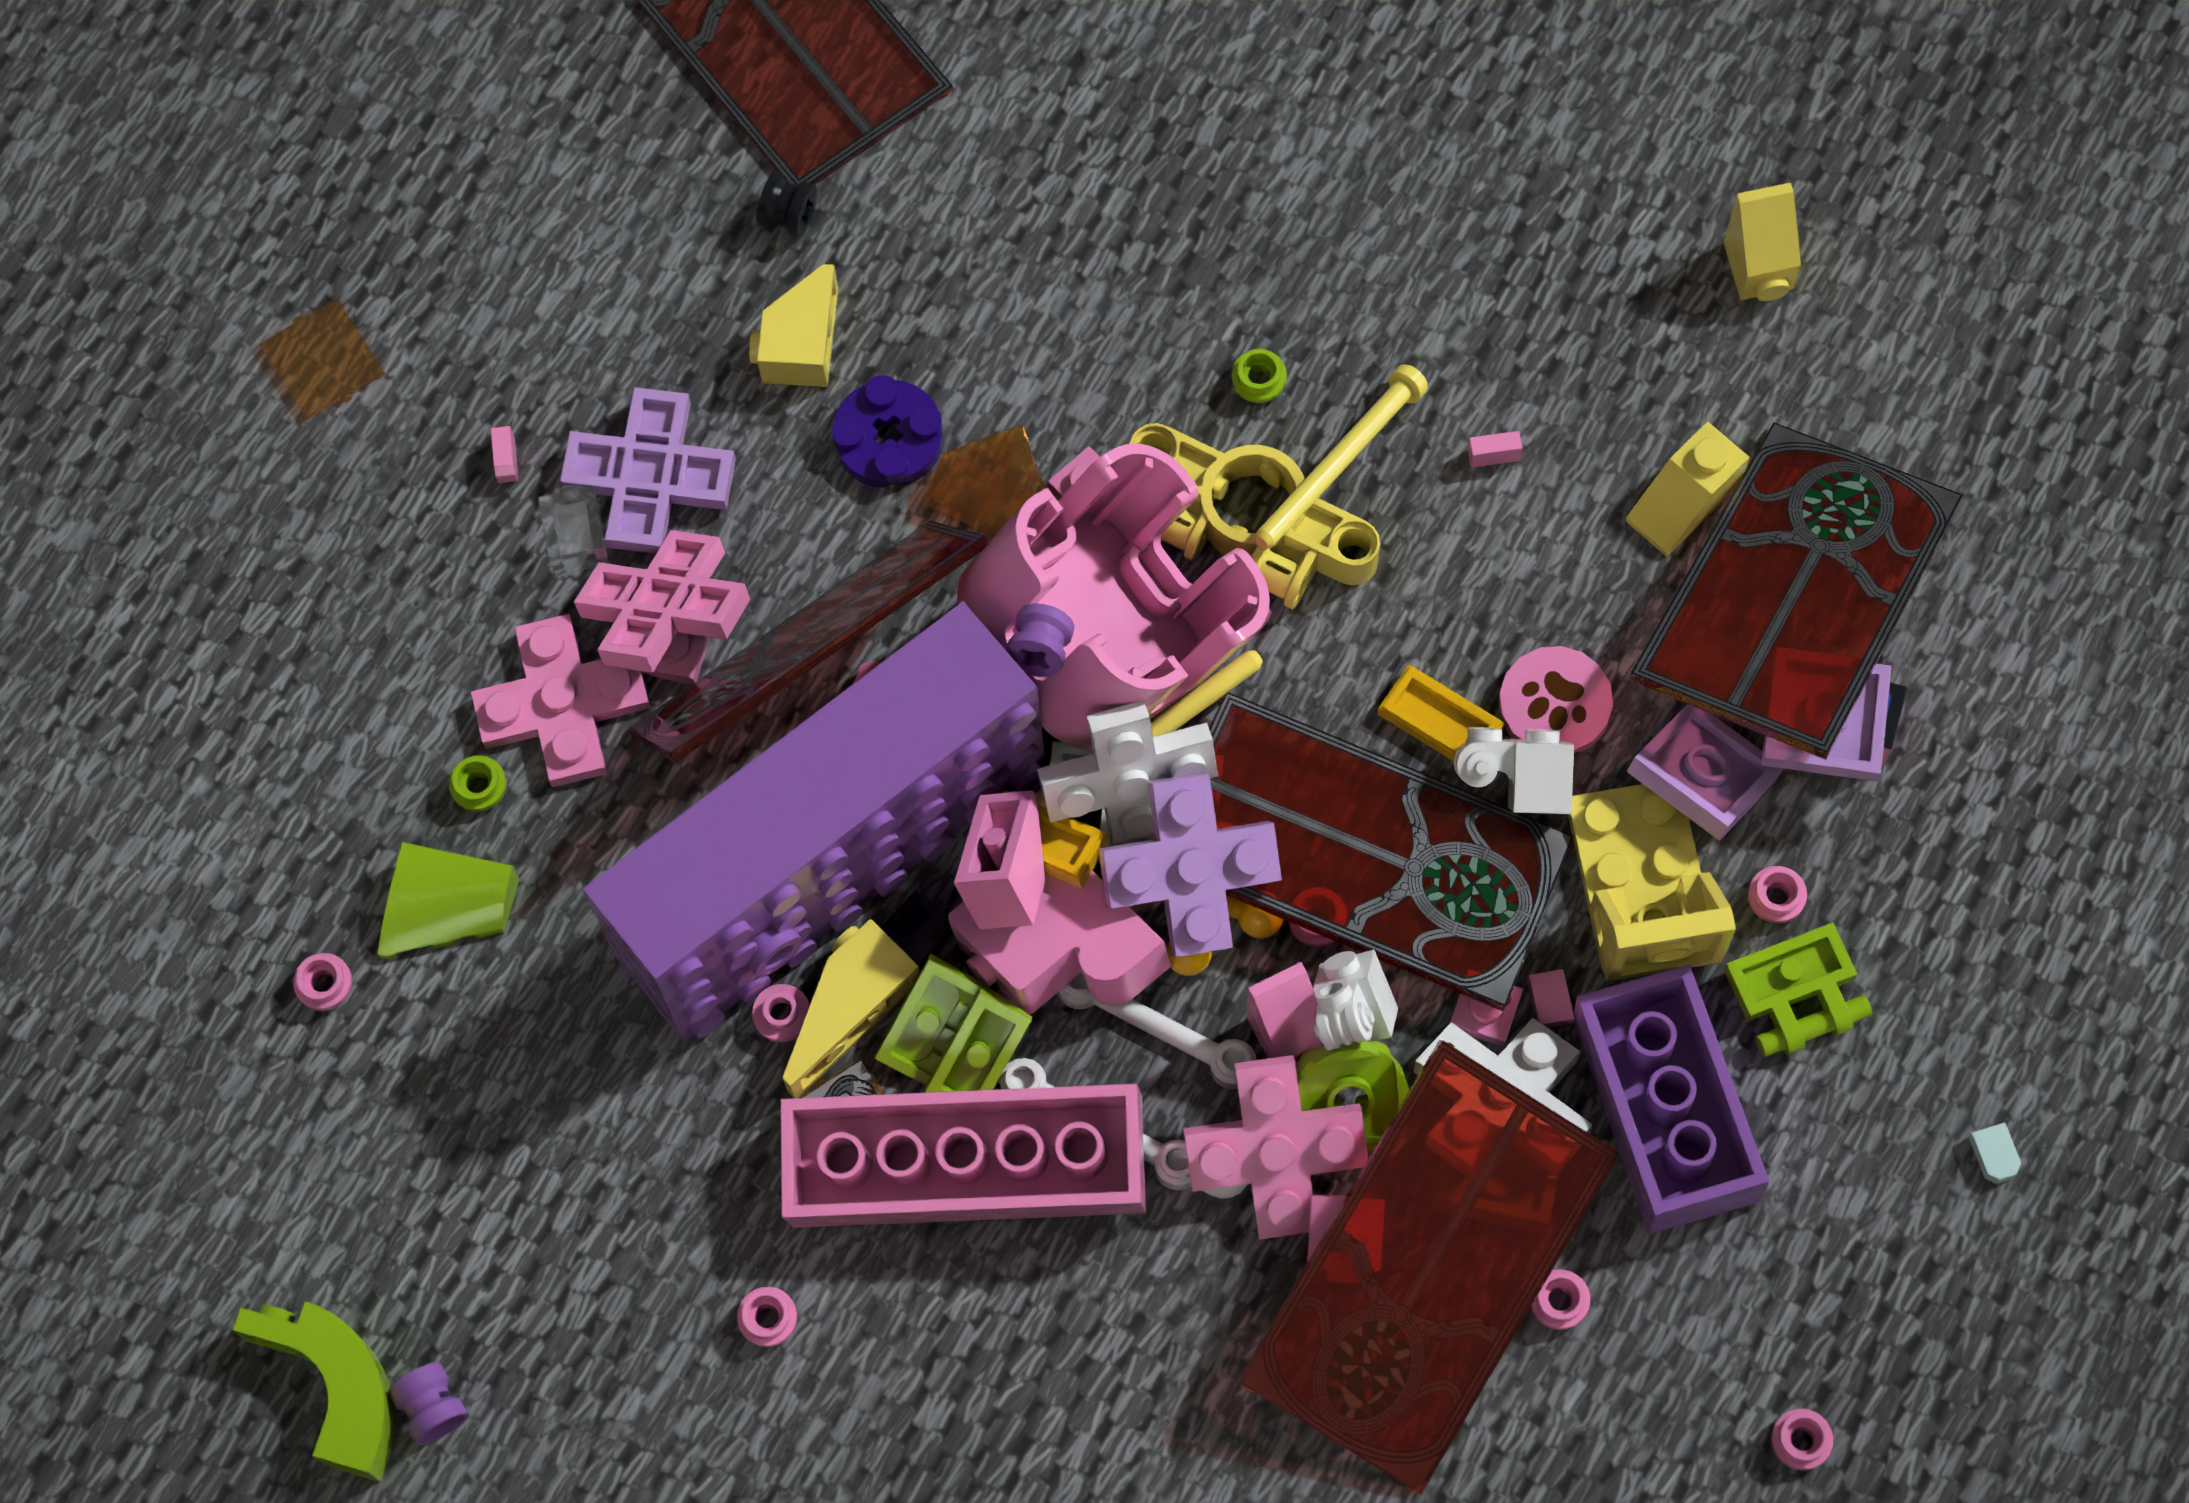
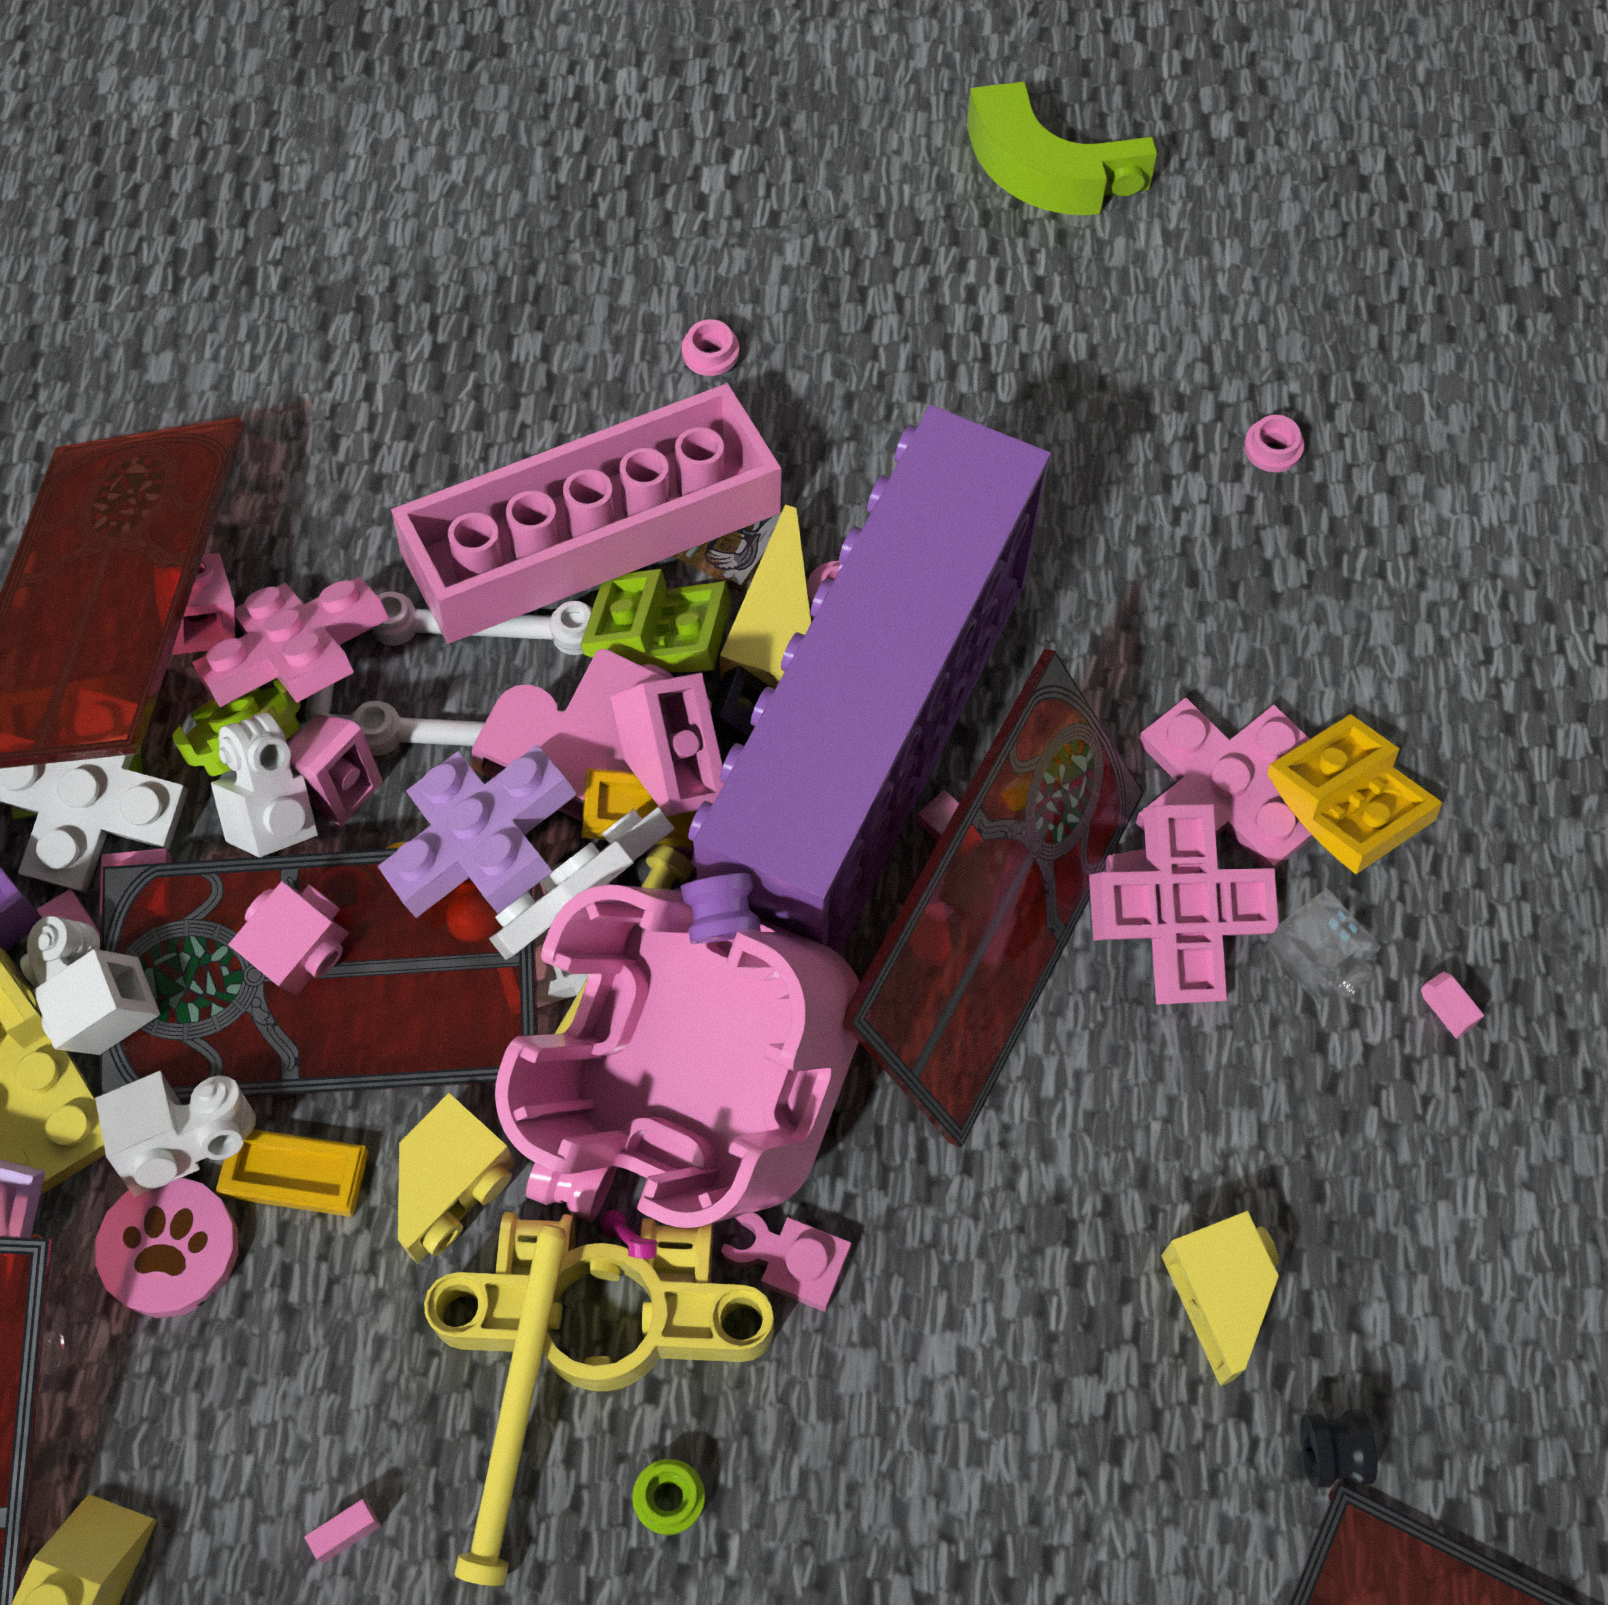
camera: 150 degrees right, 5 degrees down
(427, 1401) = (958, 170): medium lavender wheel -> none
(443, 899) = (1212, 554): lime slope -> none
(470, 637) = (1352, 794): none -> yellow slope
(473, 768) = (1258, 655): lime plate -> none
(648, 470) = (1292, 1054): lavender plate -> none
(884, 403) = (1029, 1245): dark purple plate -> none
(986, 480) = (911, 1209): clear orange slope -> none
(1204, 503) = (614, 1224): none -> dark pink hinge
(1323, 655) = (443, 1174): none -> light yellow slope
(1373, 859) = (291, 936): none -> bright pink brick
(1556, 892) = (85, 993): none -> white brick

